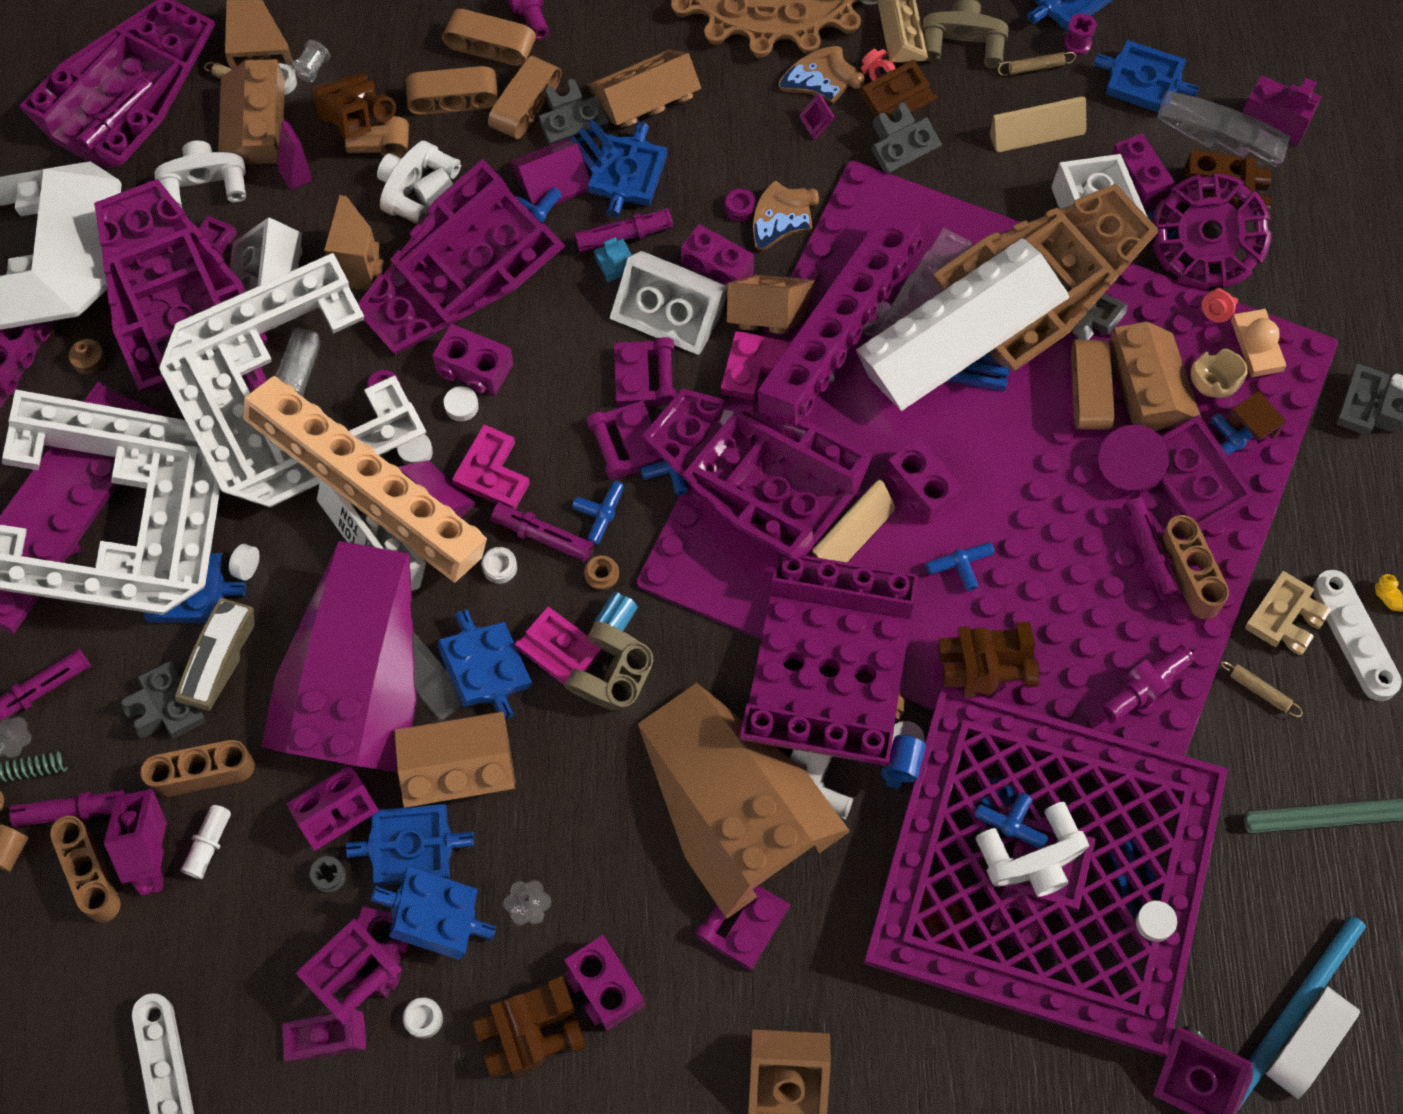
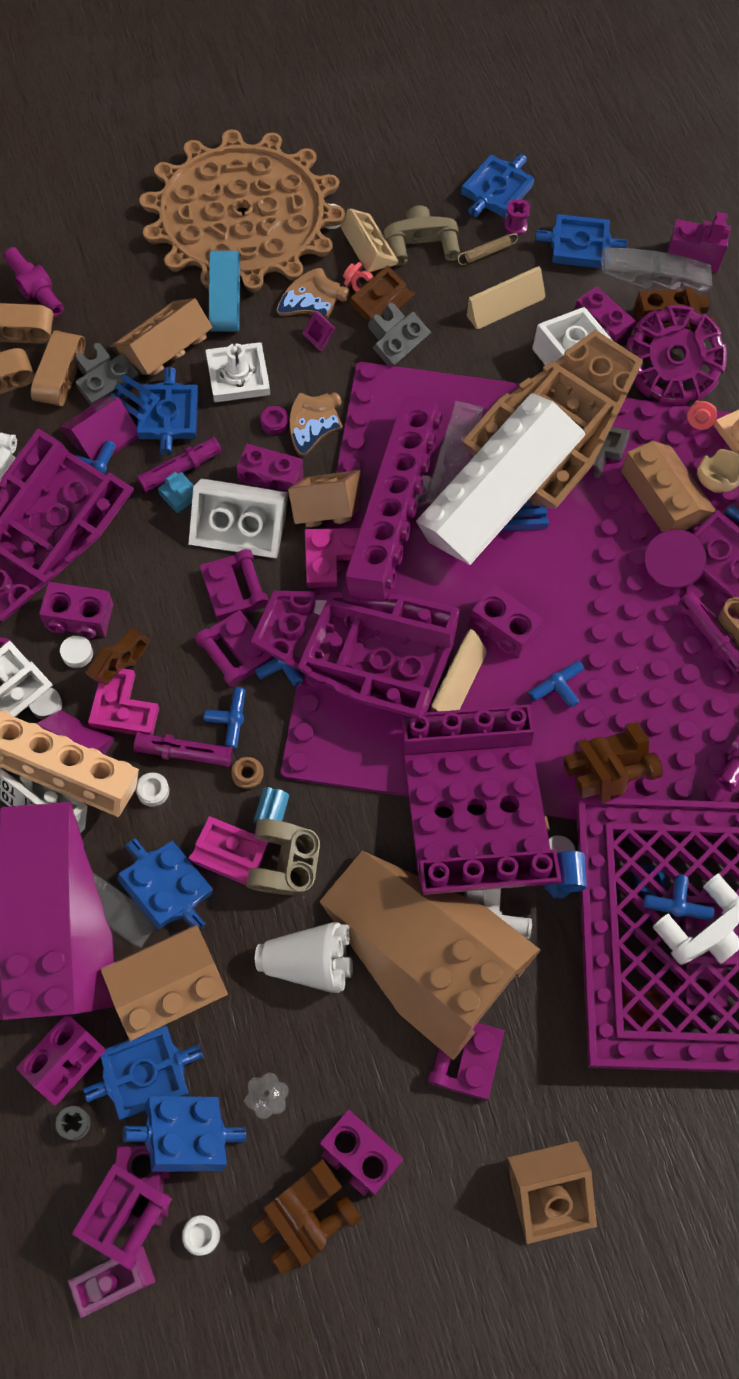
camera: 20 degrees left, 0 degrees up
(503, 418) = (117, 657): none -> reddish brown tile
(609, 775) = (309, 957): none -> white cone
(717, 134) = (237, 367): none -> white plate
(725, 50) = (224, 291): none -> dark azure beam
(1092, 384) = (621, 505): medium nougat beam -> none

